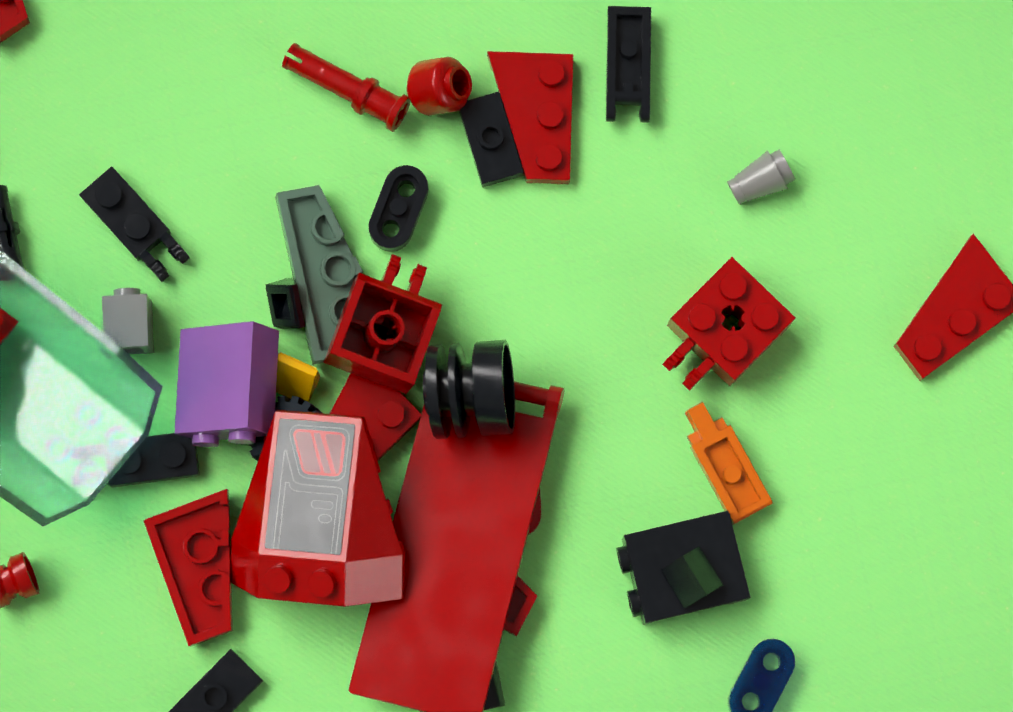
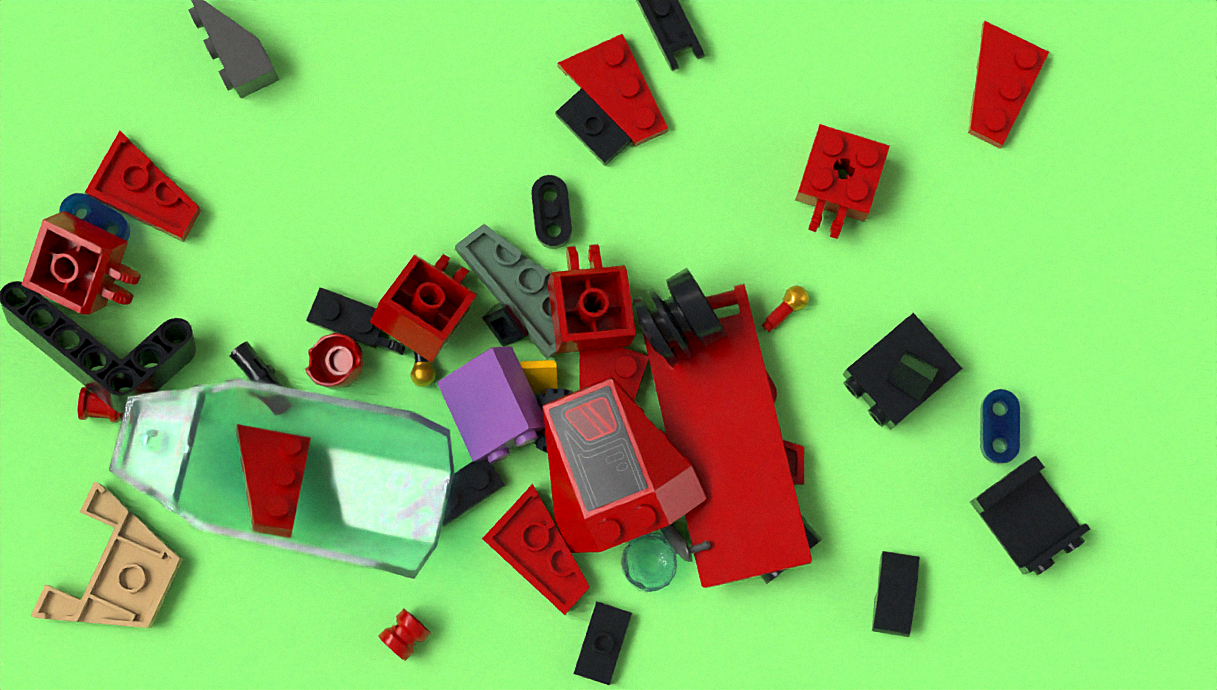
camera: 20 degrees left, 0 degrees up
(85, 253) = (335, 361): none -> red hair
(129, 320) = (392, 391): light grey brick -> none
(174, 311) = (422, 371): none -> pearl gold piece
(209, 241) = (424, 306): none -> red hinge
(307, 636) = (649, 563): none -> clear light blue hair
(349, 633) = (680, 545): none -> dark grey piece
(363, 94) = (483, 140): red pin -> none
(439, 86) = (535, 105): red head -> none
(610, 432) = (794, 300): none -> piece
(726, 465) = (891, 280): orange hinge -> none
(762, 177) = (809, 56): light grey cone -> none

